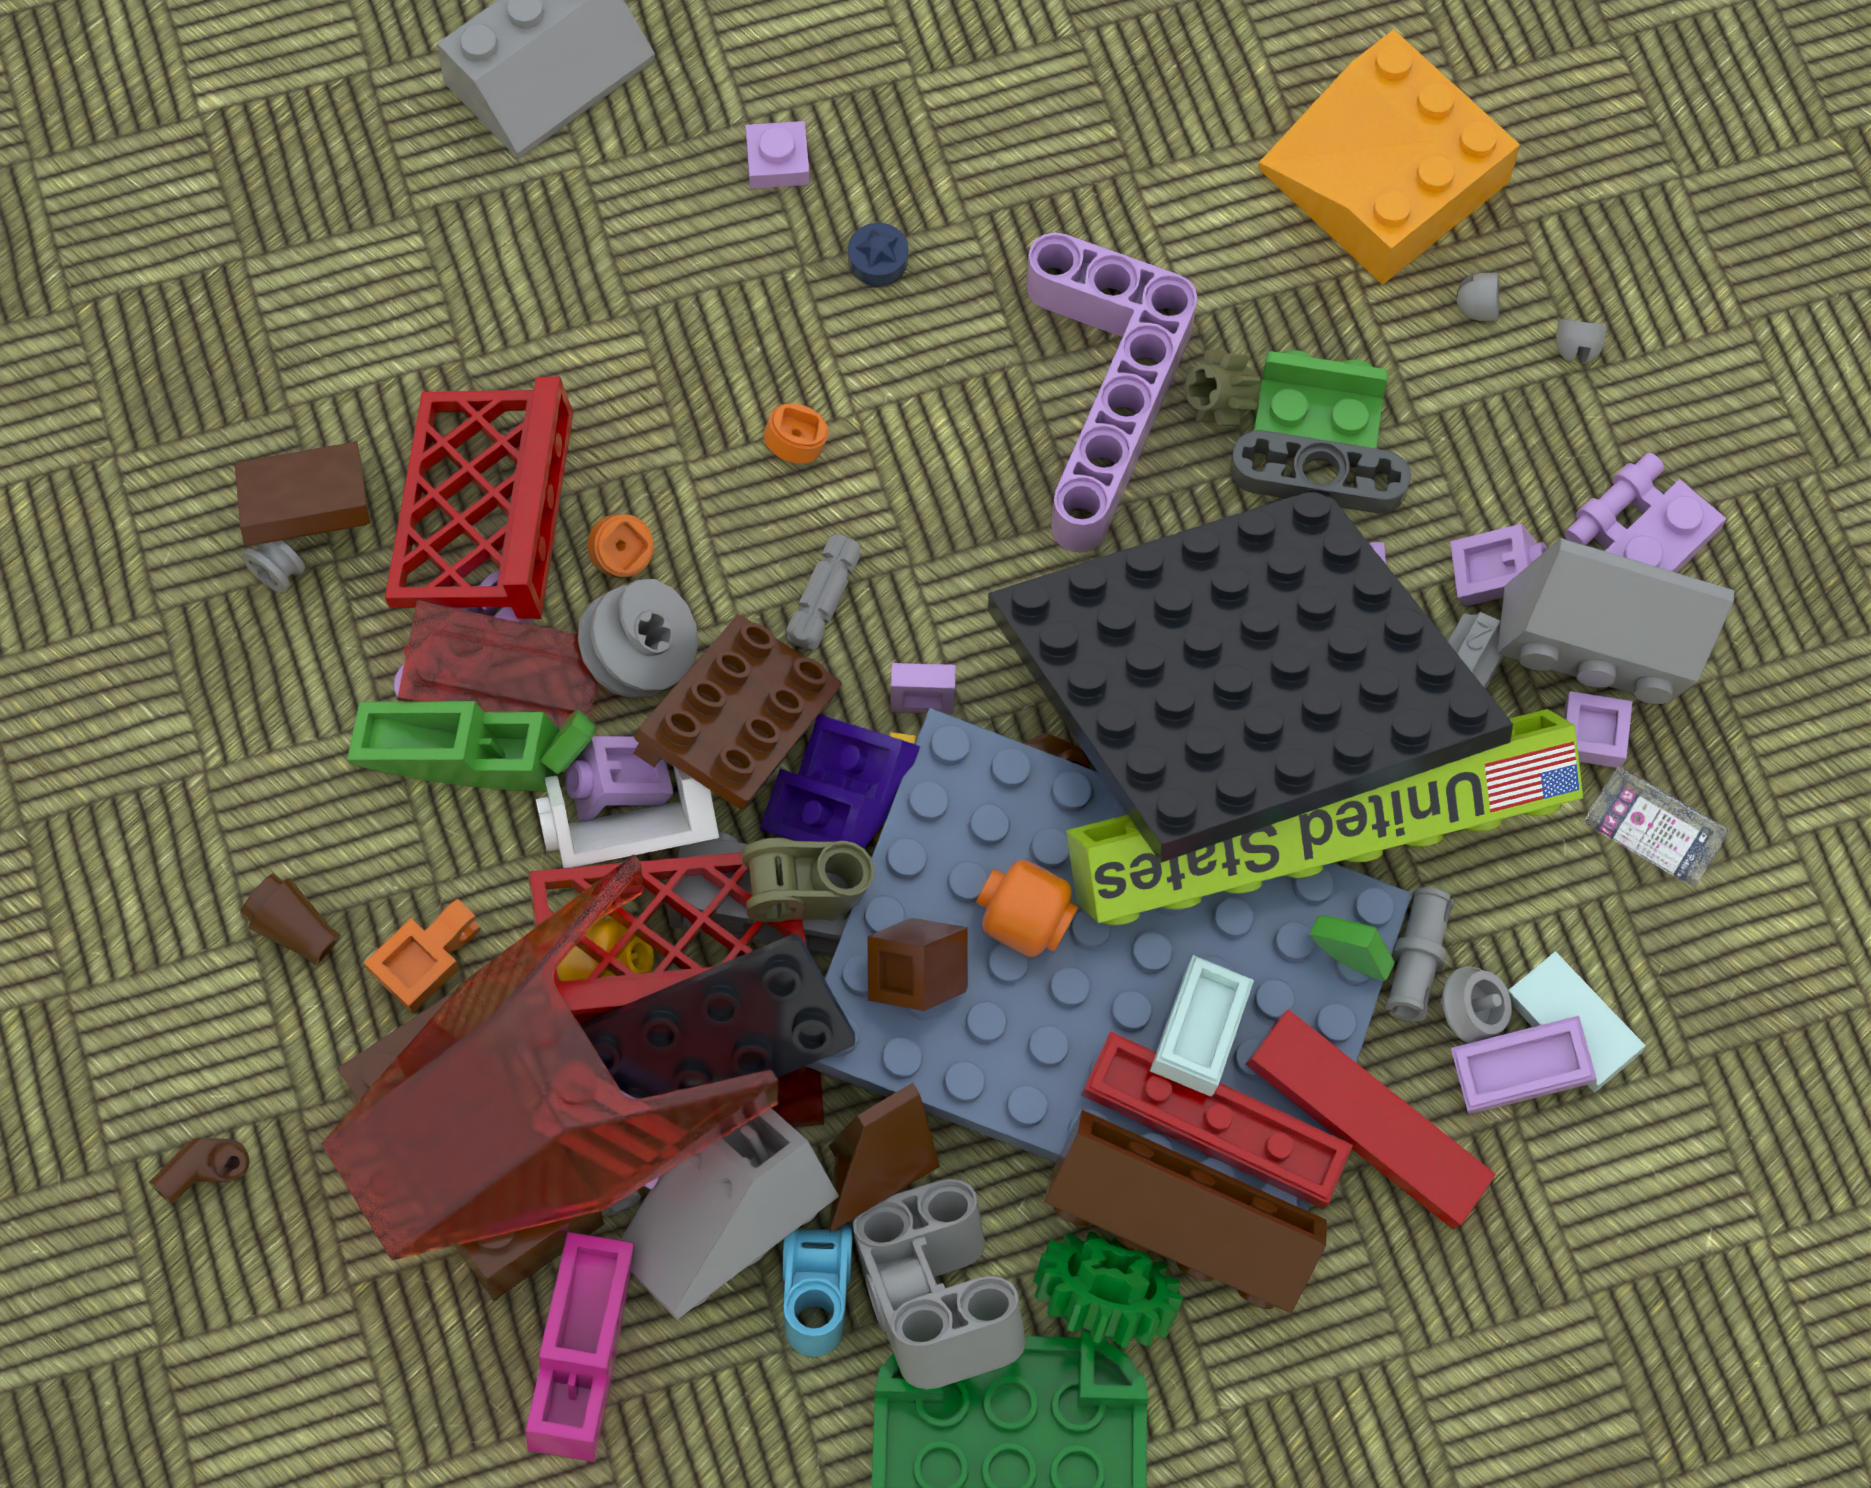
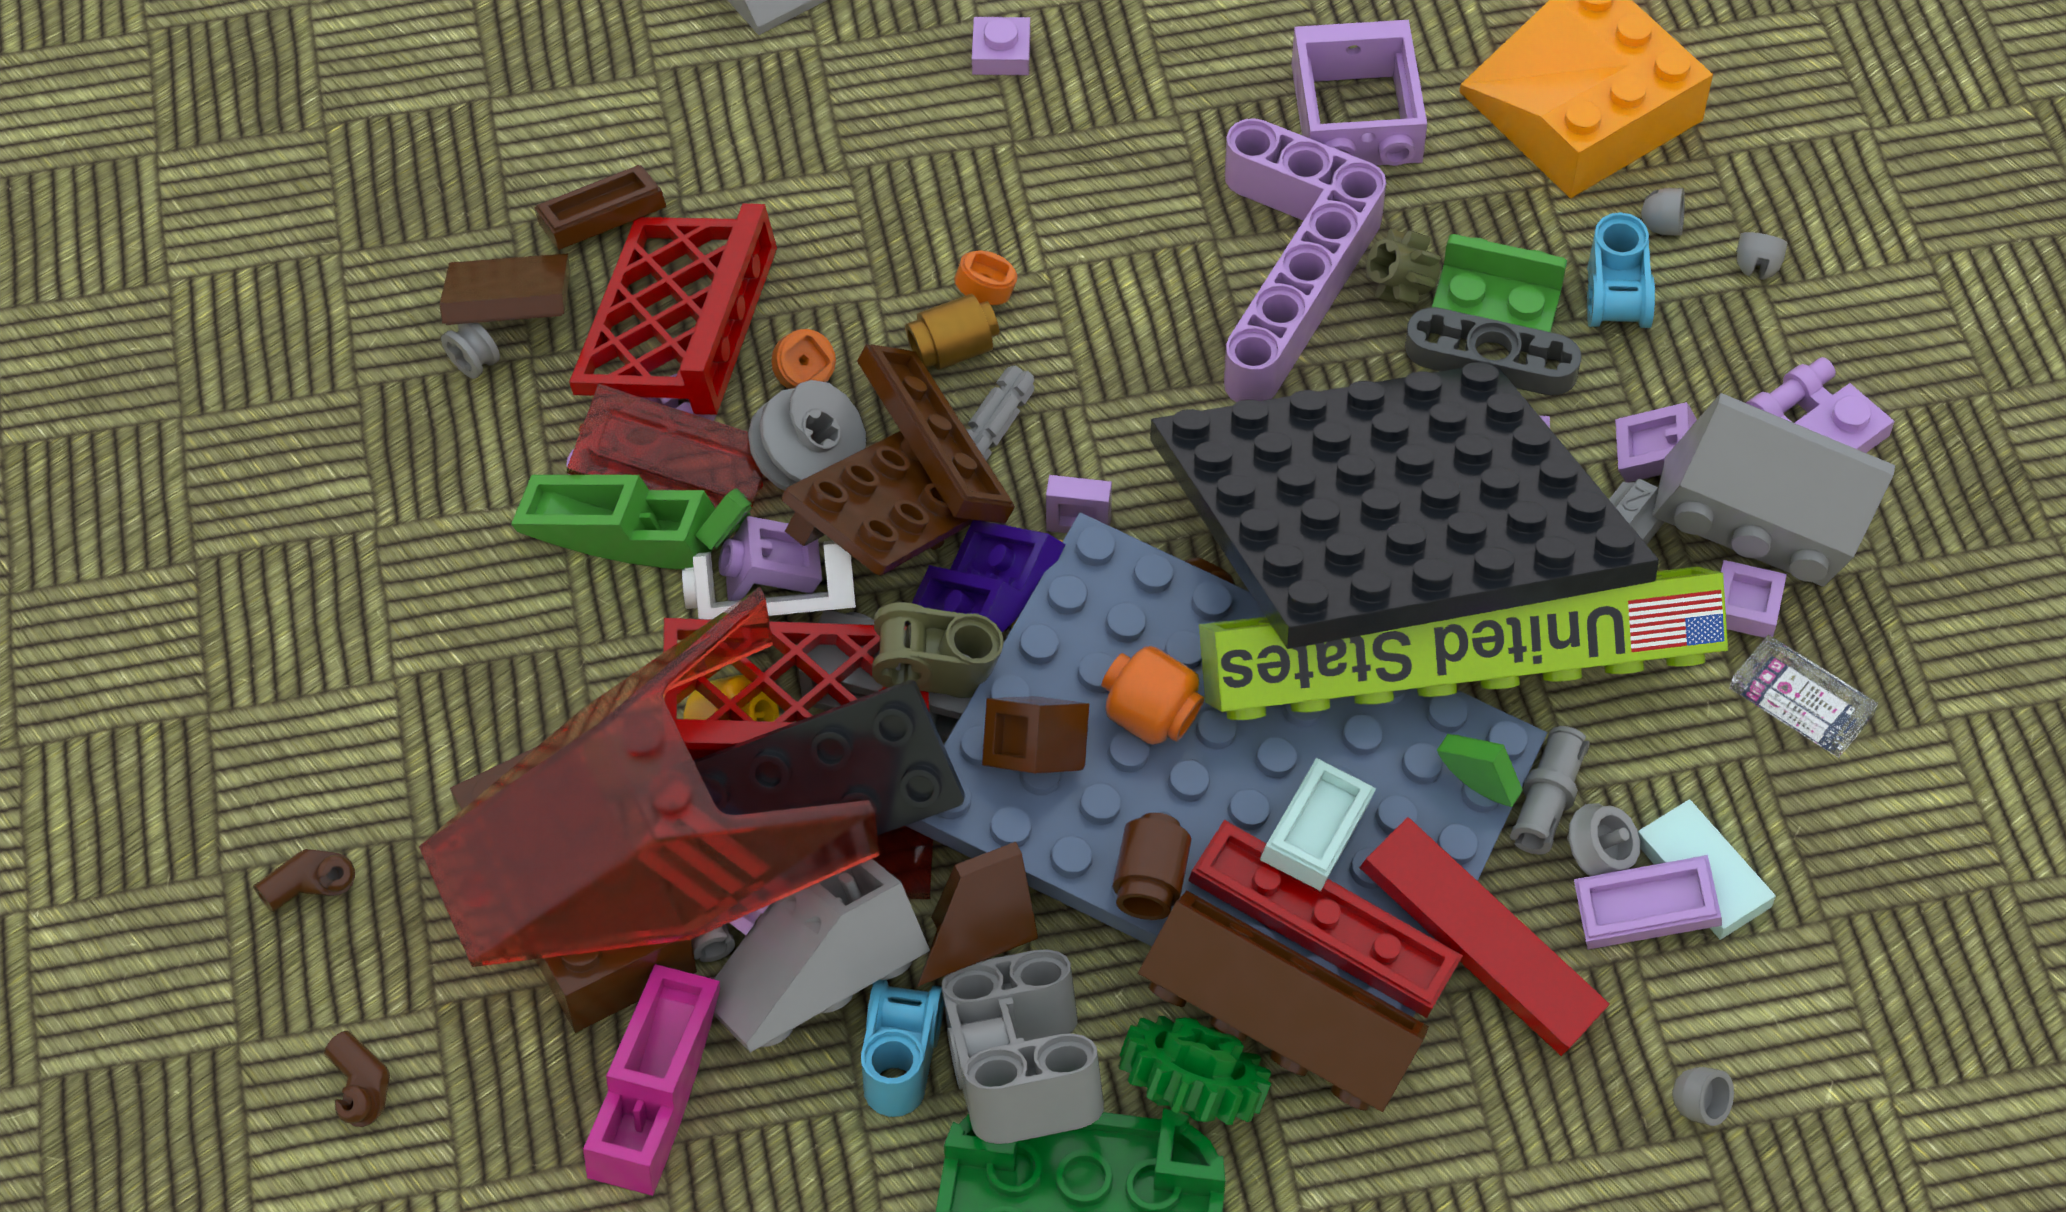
camera: 10 degrees right, 10 degrees down
(288, 918) = (428, 657): reddish brown cone -> none
(296, 1376) = (366, 1080): none -> reddish brown arm
(383, 384) = (599, 207): none -> reddish brown tile
(419, 961) = (548, 702): orange plate -> none
(769, 625) = (935, 434): none -> reddish brown tile
(770, 501) = (953, 332): none -> pearl gold brick
(878, 254) = (1085, 134): dark blue tile -> none
(1046, 1090) = (1151, 866): none -> reddish brown brick
(1151, 138) = (1381, 51): none -> lavender window
(1442, 386) = (1620, 272): none -> medium azure piece
(1592, 1260) = (1704, 1095): none -> light grey hinge

